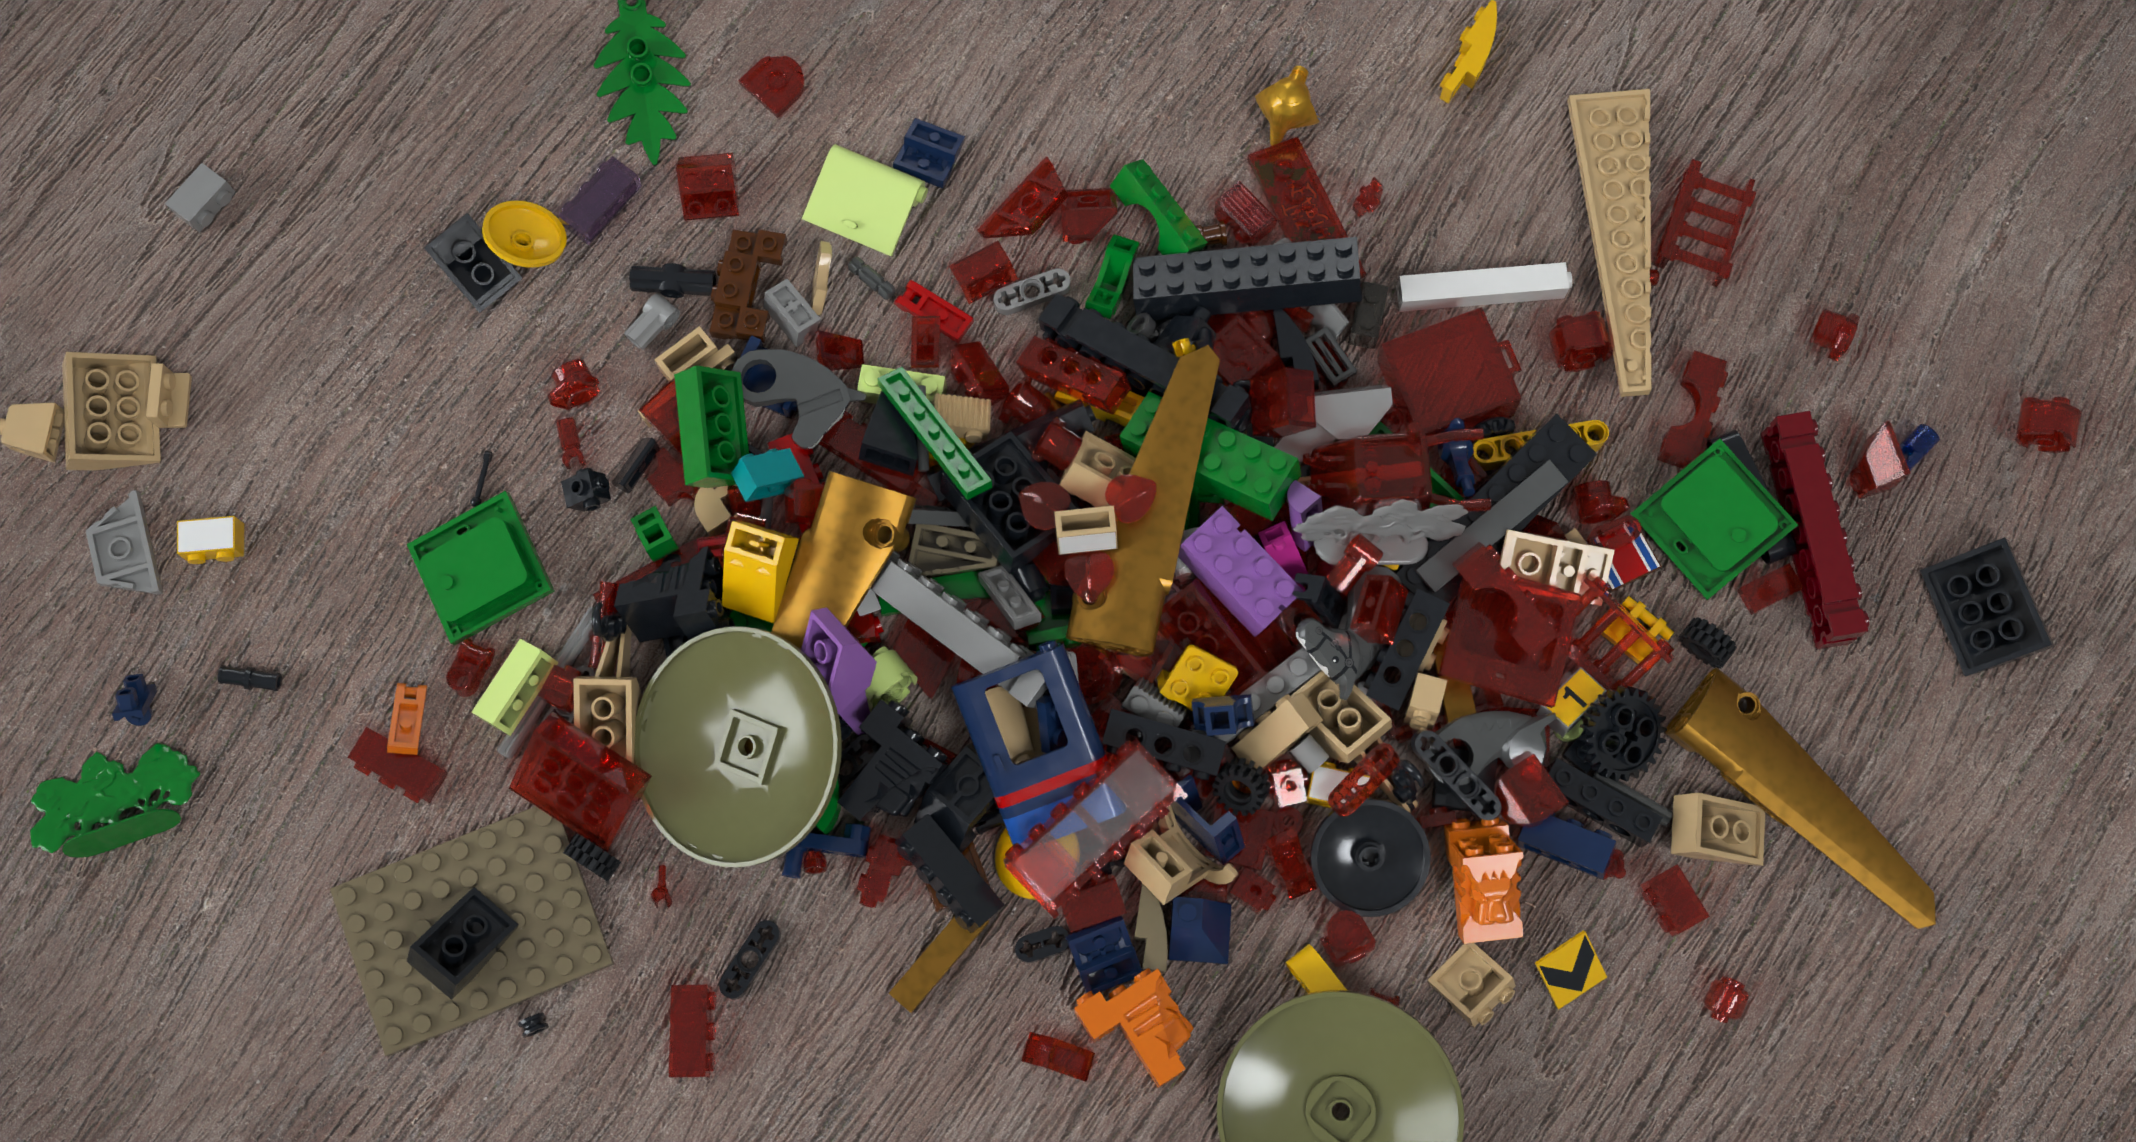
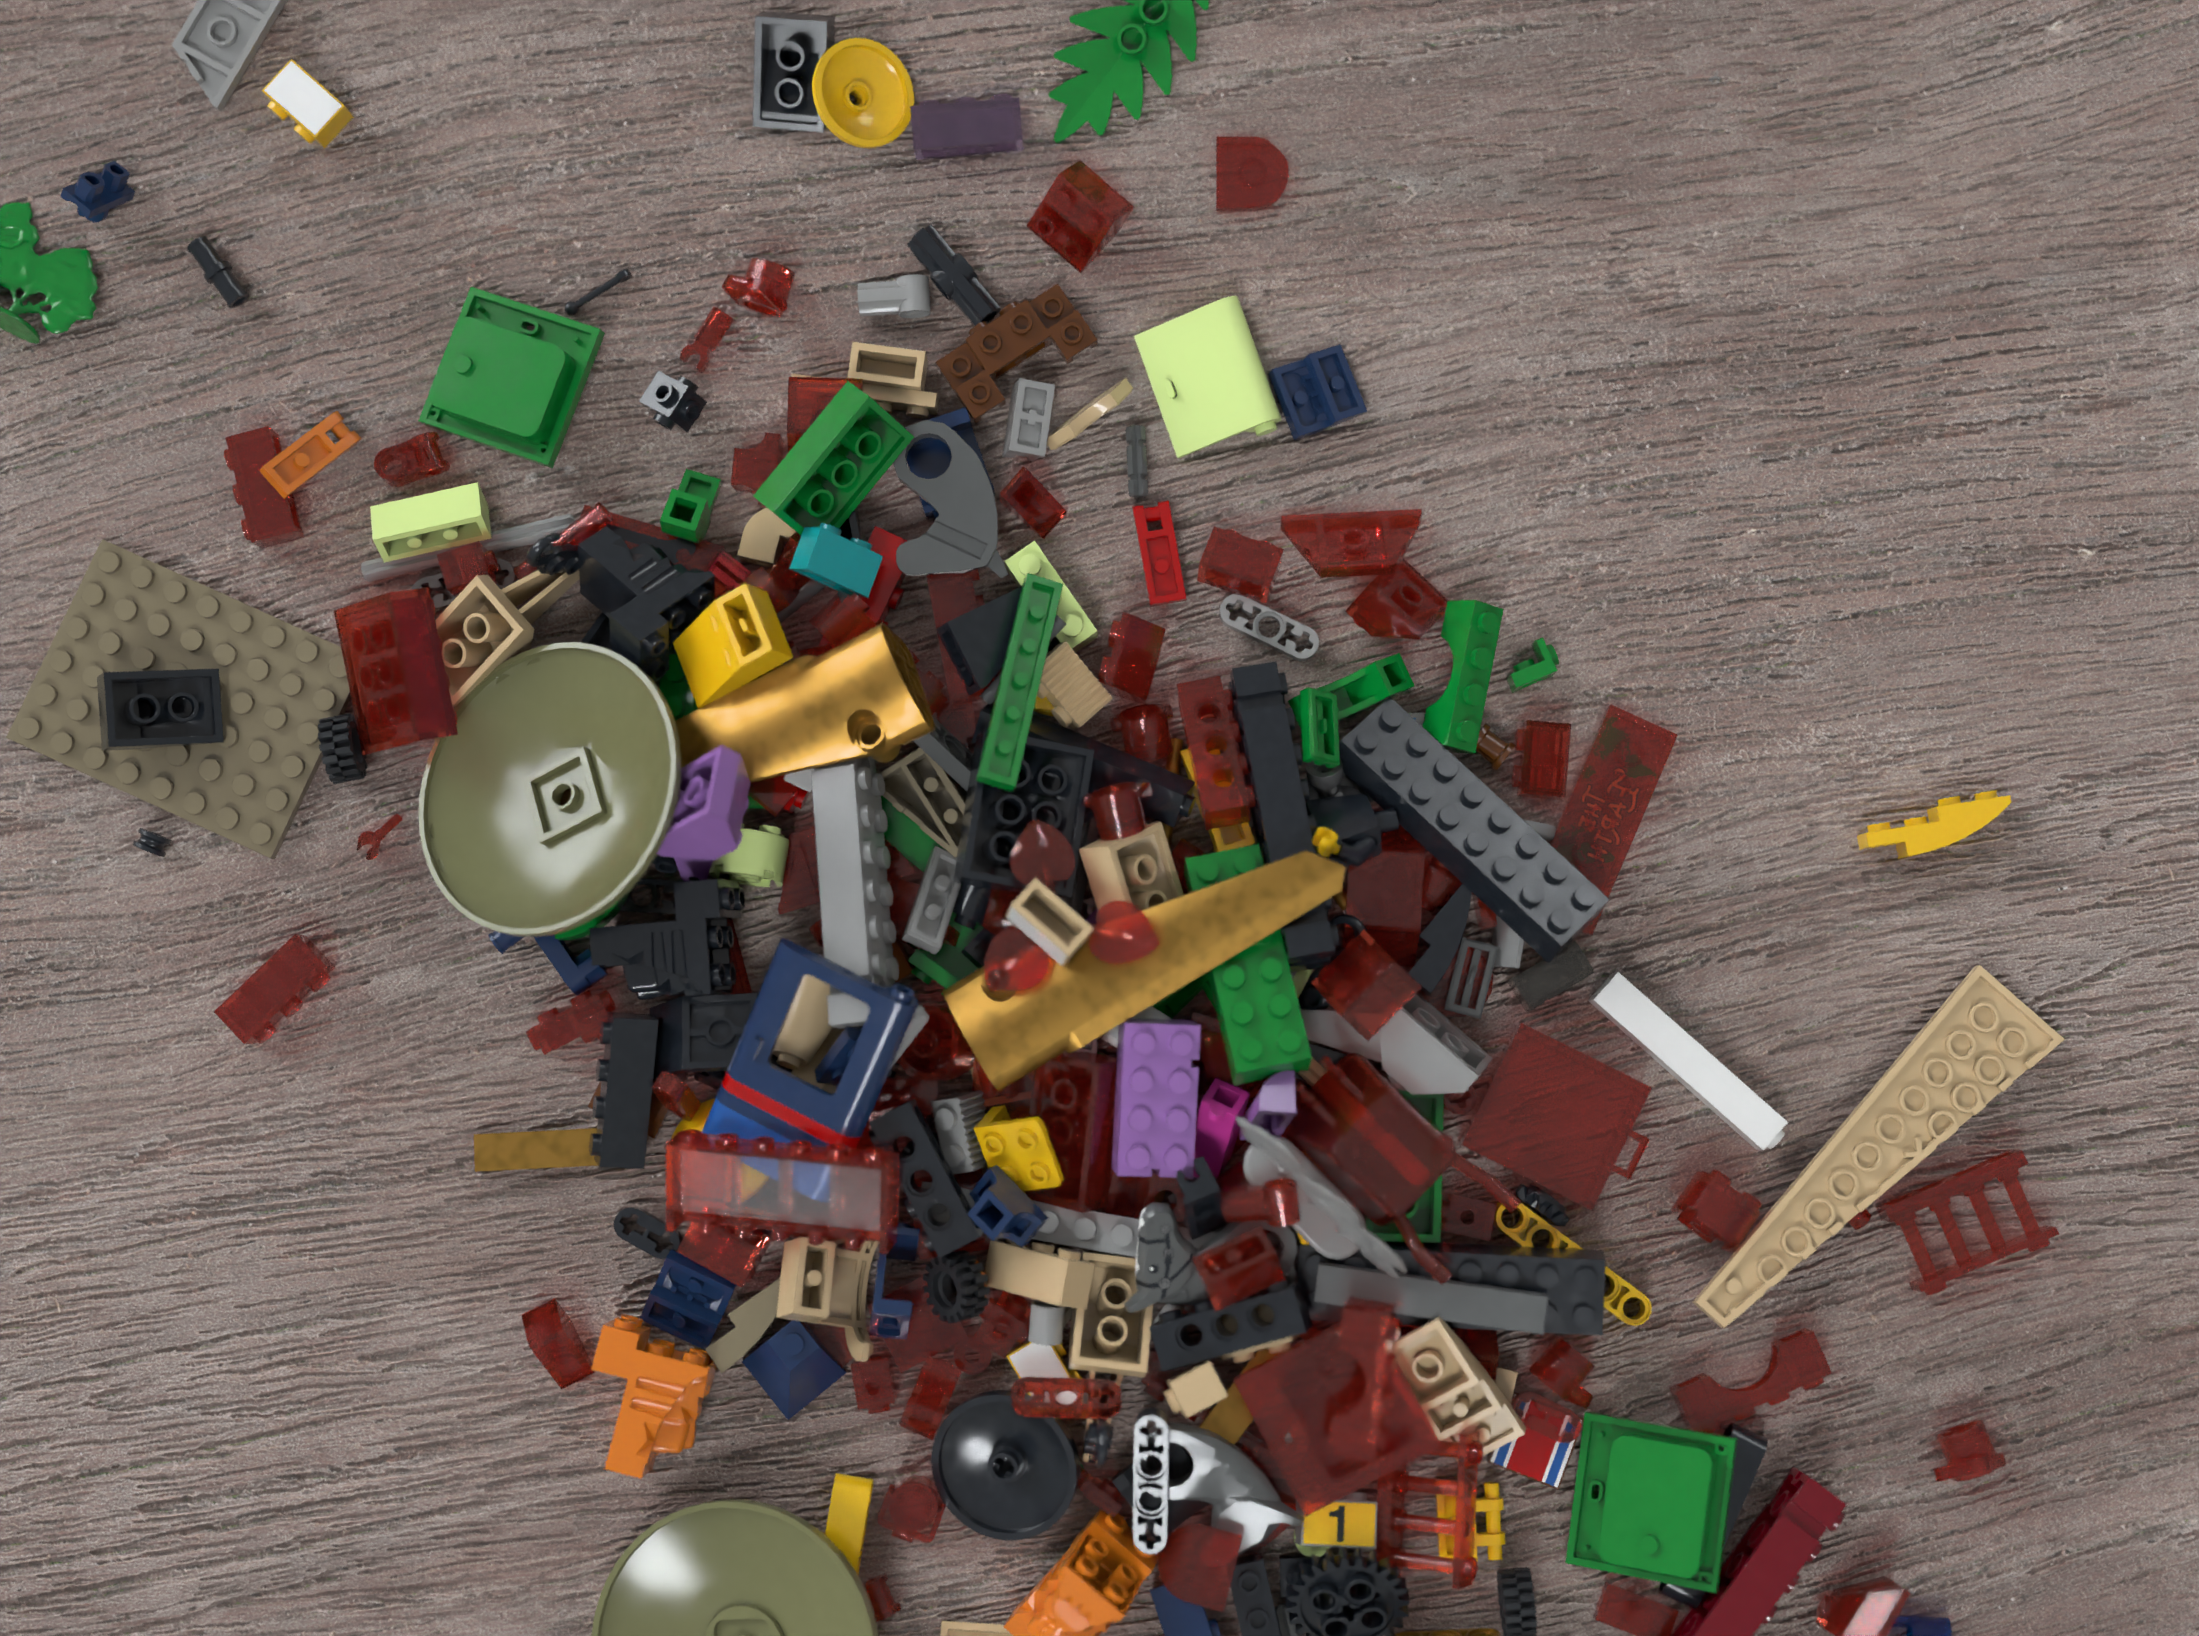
camera: 50 degrees right, 10 degrees up
(636, 465) = (744, 420): black slope -> none
(745, 983) = (364, 994): black beam -> none
(814, 862) = (529, 952): clear red hinge -> none
(926, 342) = (1115, 579): clear red slope -> none
(980, 847) = (676, 1096): none -> clear red beam
(1115, 304) = (1319, 726): none -> green tile
(1192, 172) = (1529, 673): none -> green bracket
(1287, 104) = (1694, 699): pearl gold piece -> none
(1369, 198) = (1674, 866): clear red plate -> none
(1456, 456) = (1473, 1204): dark blue animal -> none

